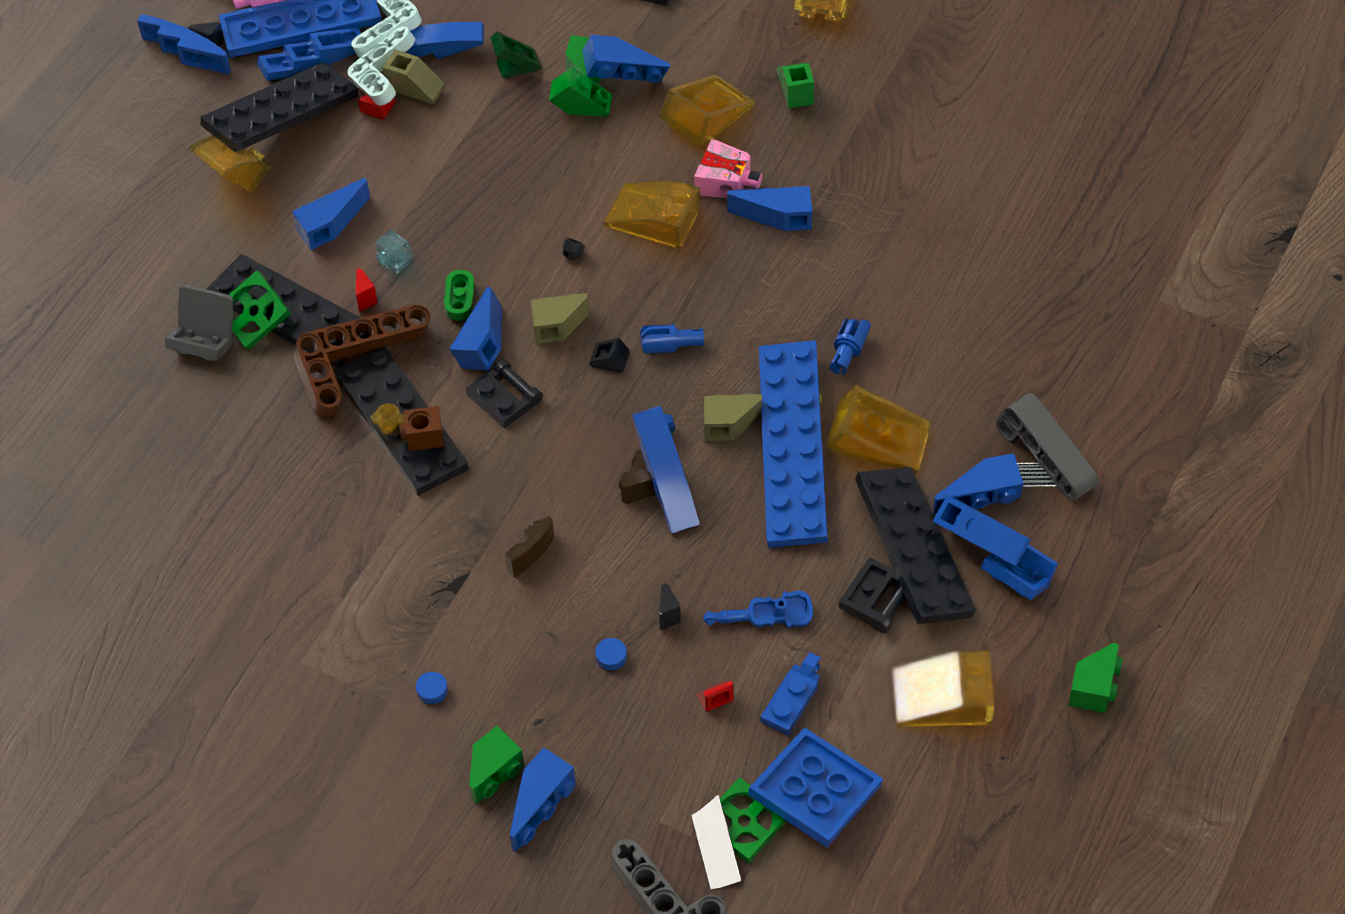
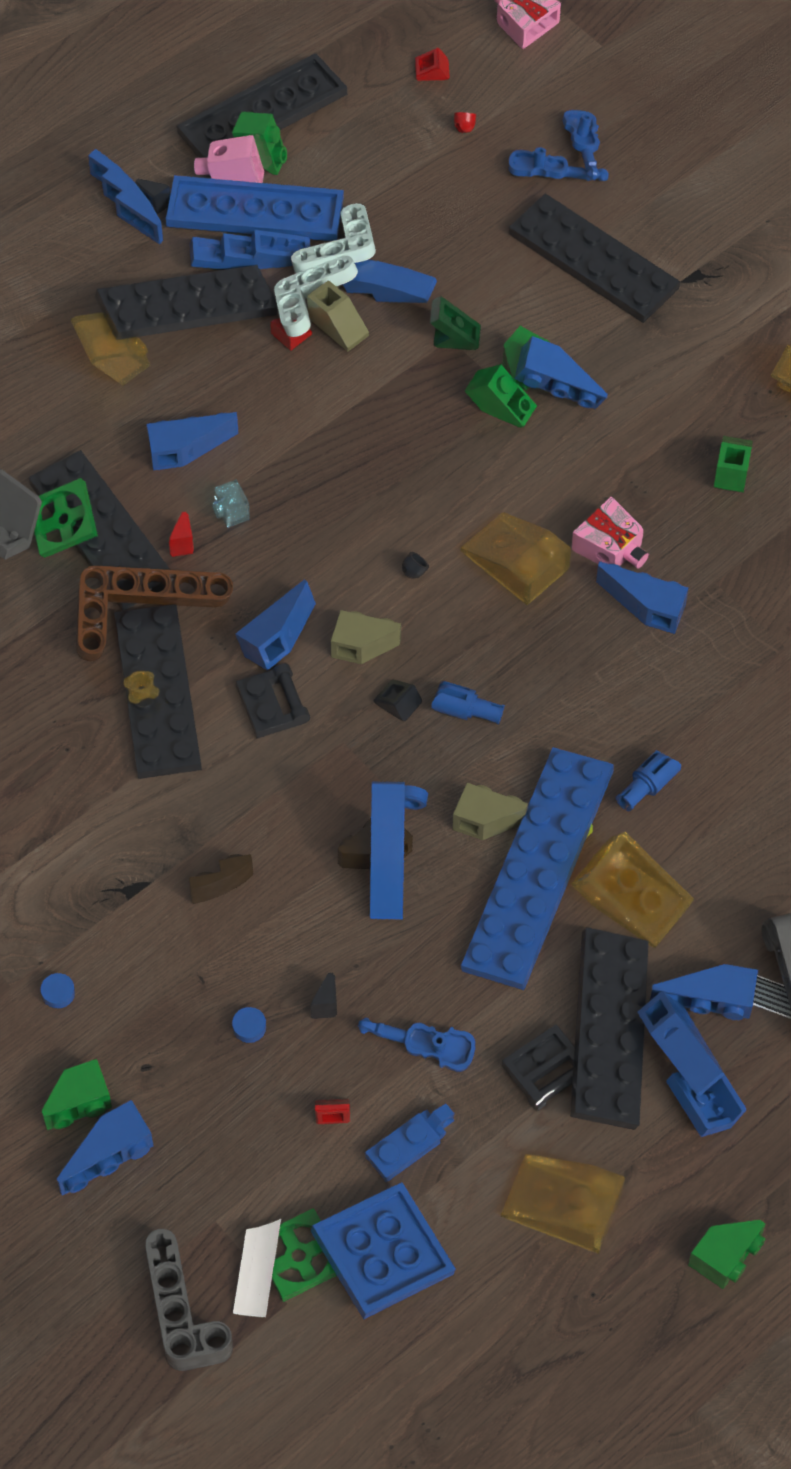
camera: 20 degrees right, 5 degrees up
(422, 428) = (170, 723): reddish brown brick -> none
(459, 300) = (275, 578): green plate -> none
(704, 108) = (625, 456): clear yellow slope -> none

